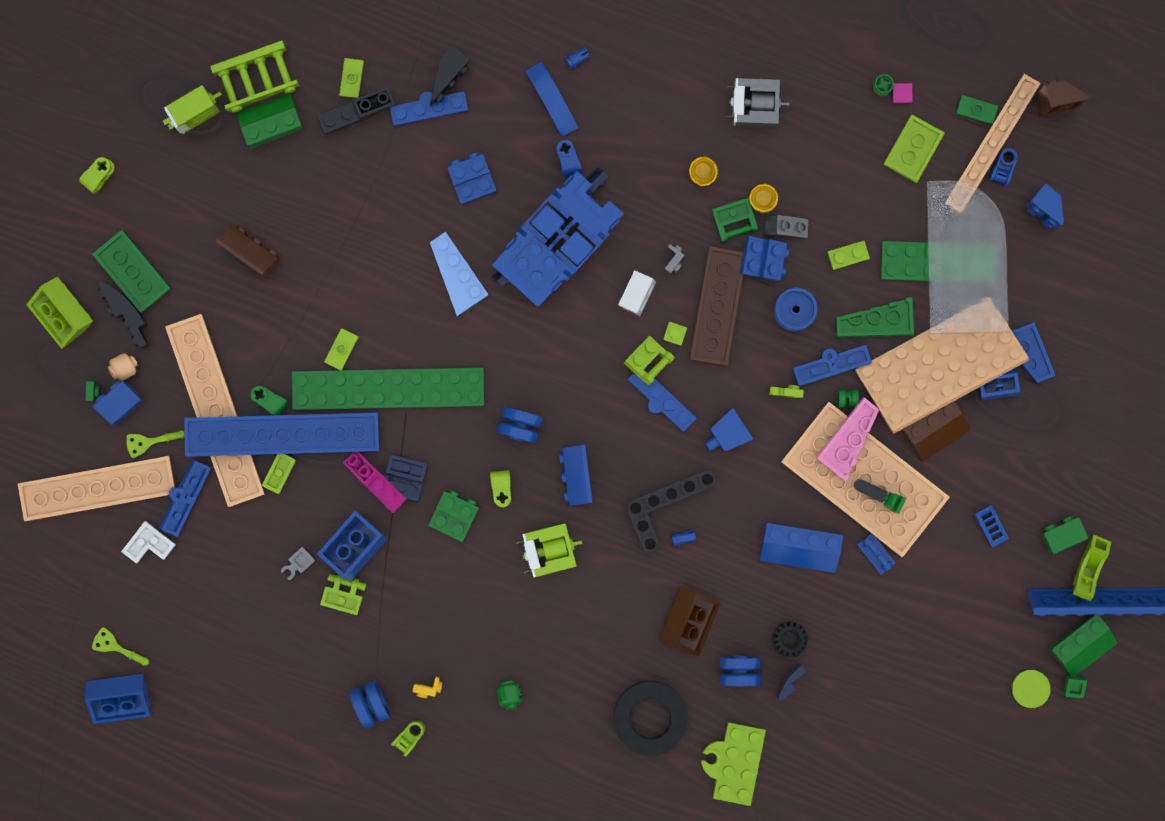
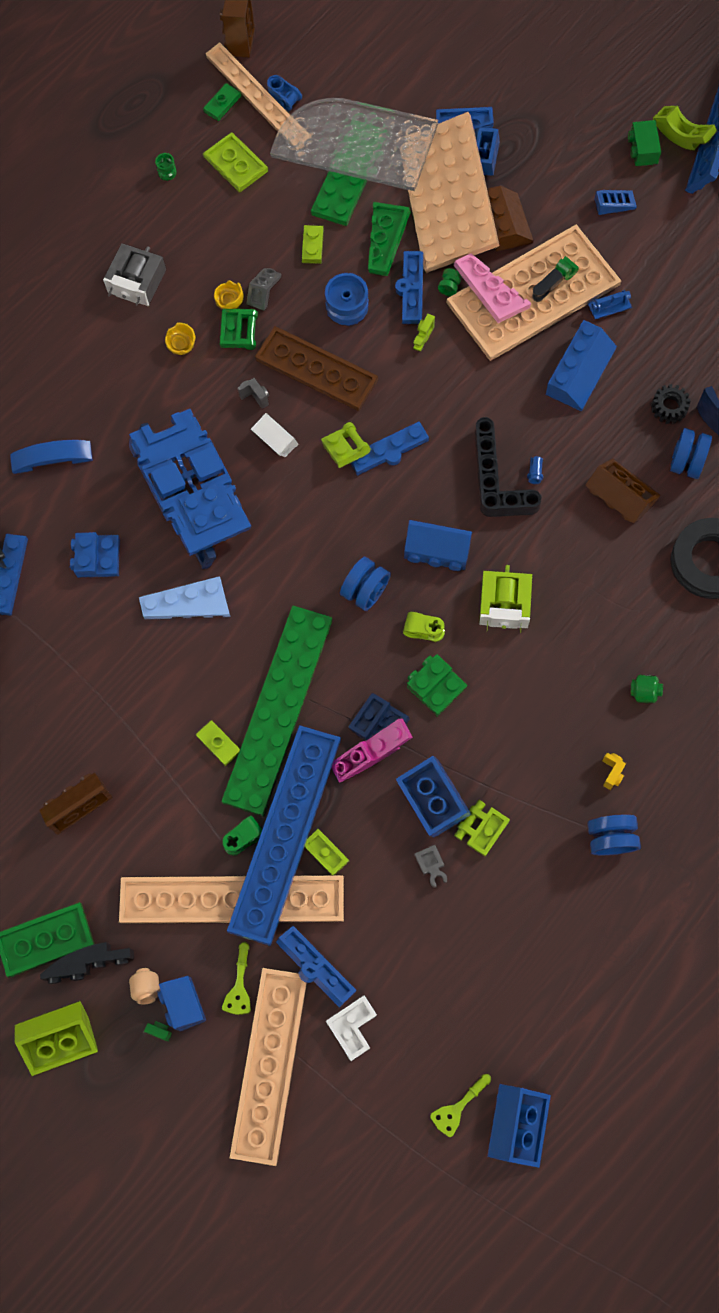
camera: 70 degrees left, 15 degrees down
(407, 739) = (662, 810): lime piece -> none
(568, 162) = (116, 457): blue piece -> none
(576, 58) = (21, 422): blue pin -> none
(675, 333) = (328, 416): lime plate -> none
(728, 433) = (444, 395): blue torso -> none
(764, 258) = (286, 312): blue plate -> none
(902, 93) = (181, 155): dark pink tile -> none
(1047, 206) = (334, 65): blue slope -> none

